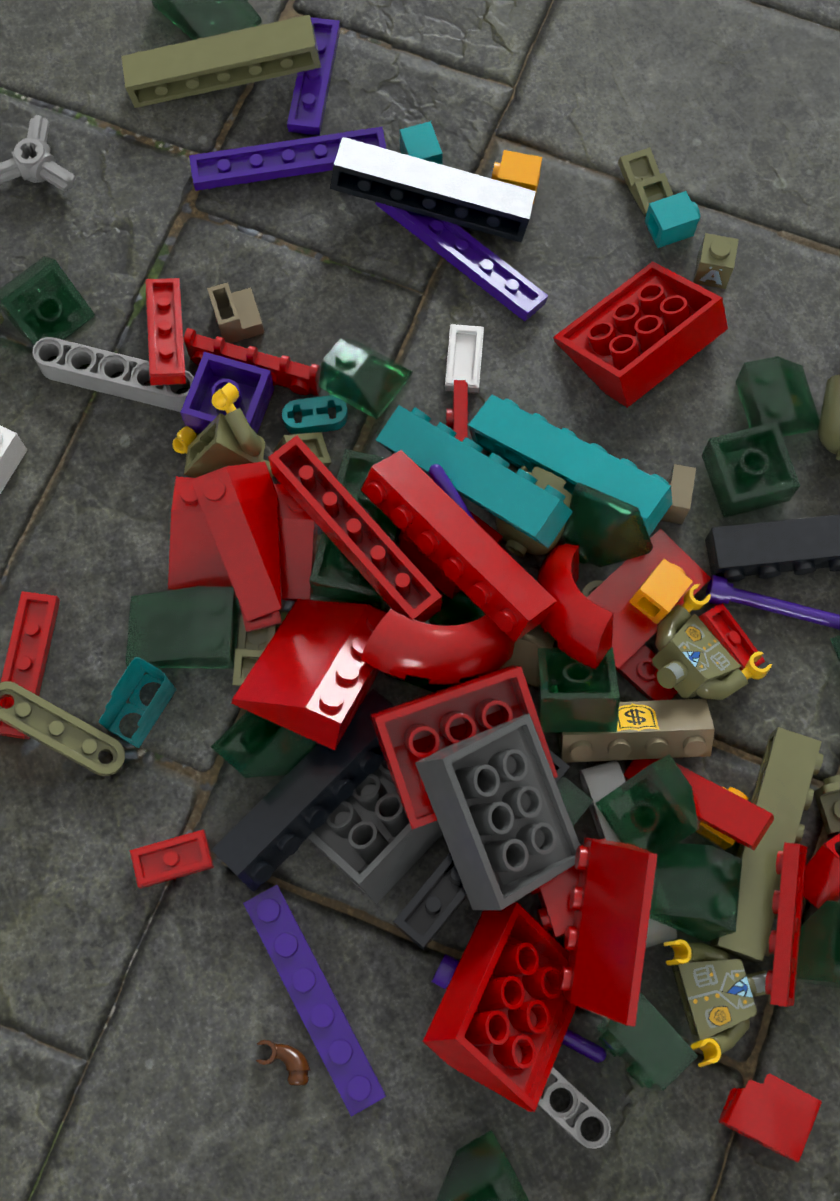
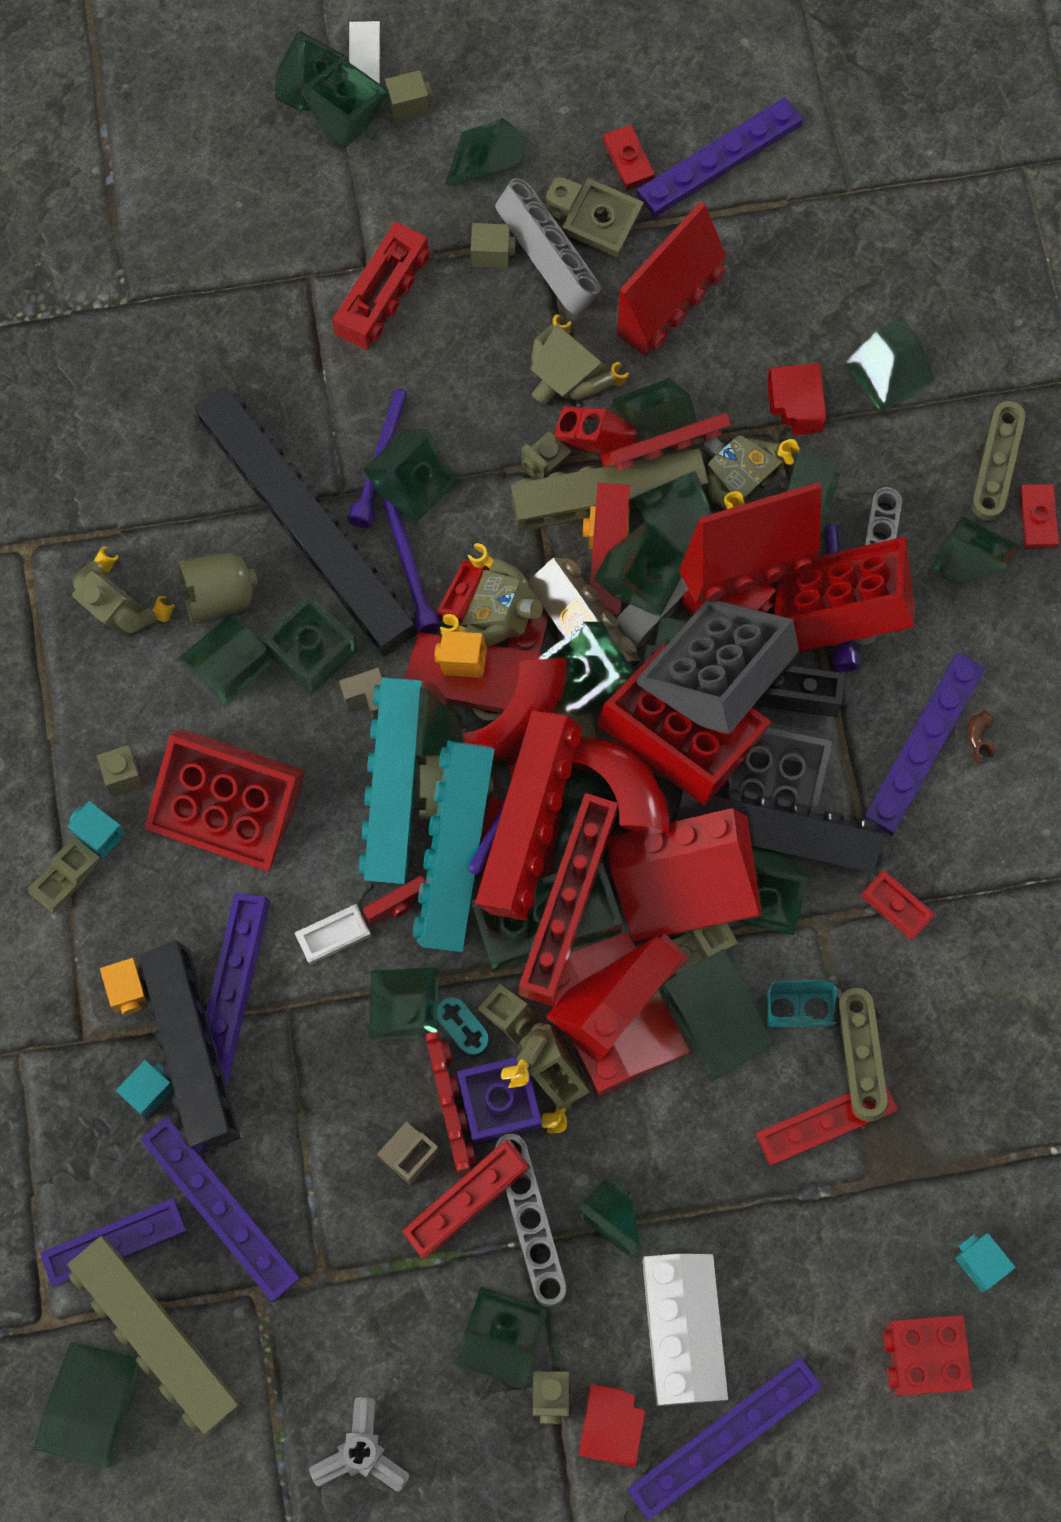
camera: 120 degrees left, 0 degrees up
(66, 430) = (612, 1216): none -> clear green slope

